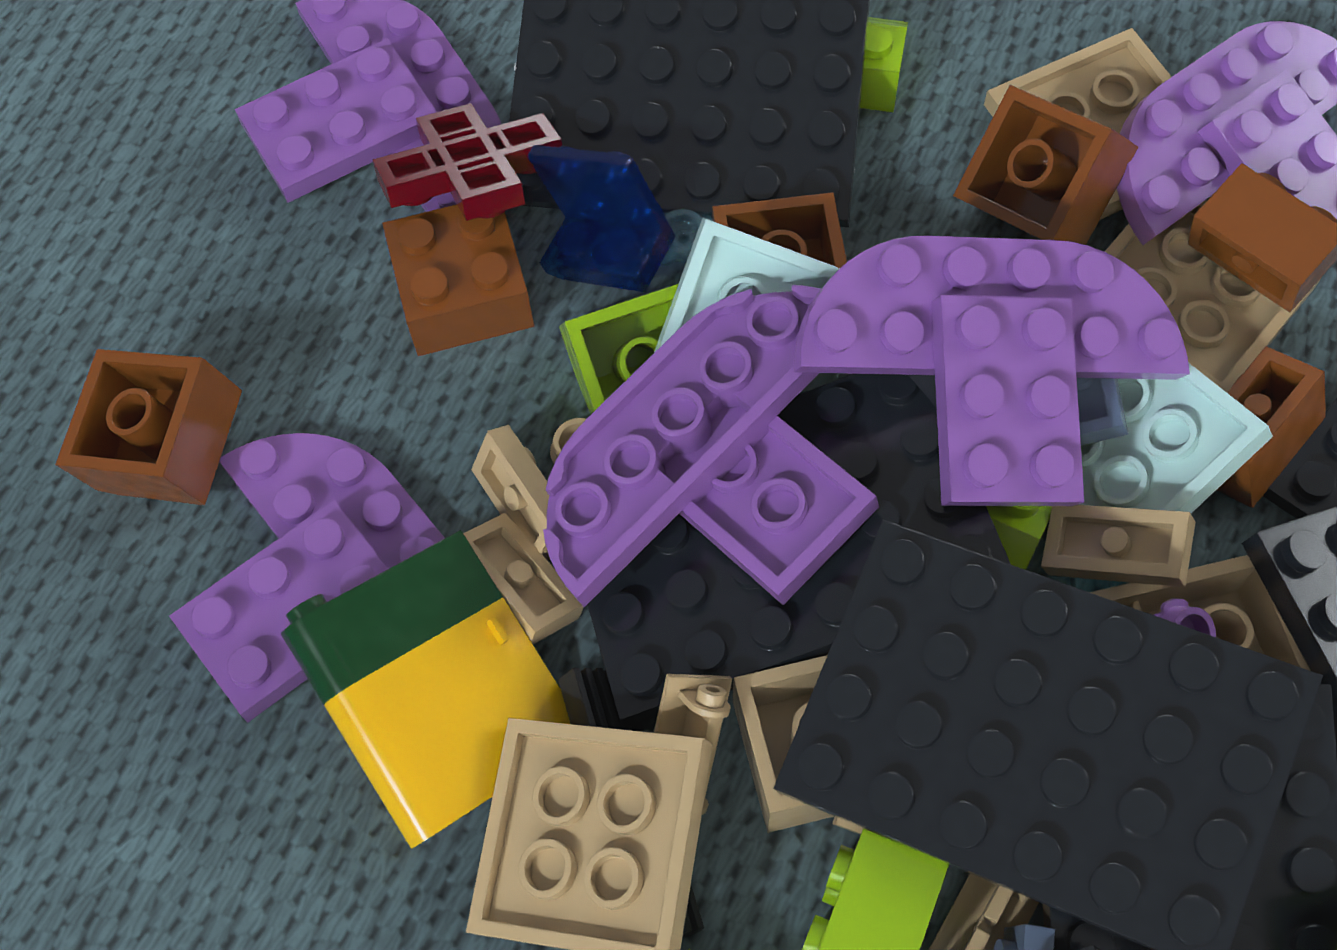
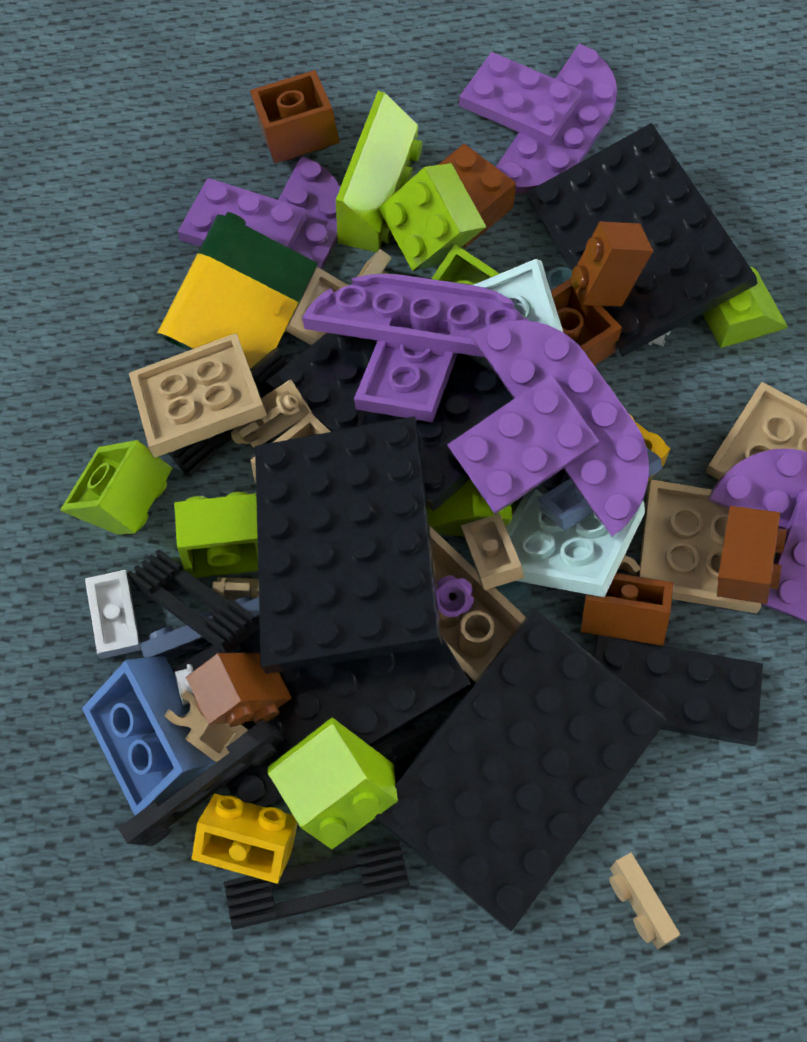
camera: 55 degrees right, 0 degrees up
(348, 370) = (376, 173): none -> lime slope
(466, 160) = (522, 157): dark red plate -> none
(491, 329) = (431, 216): none -> lime brick
(611, 220) = (539, 242): clear blue bracket -> none
(750, 140) = (611, 263): none -> dark orange brick
(1045, 168) = (712, 424): dark orange brick -> none

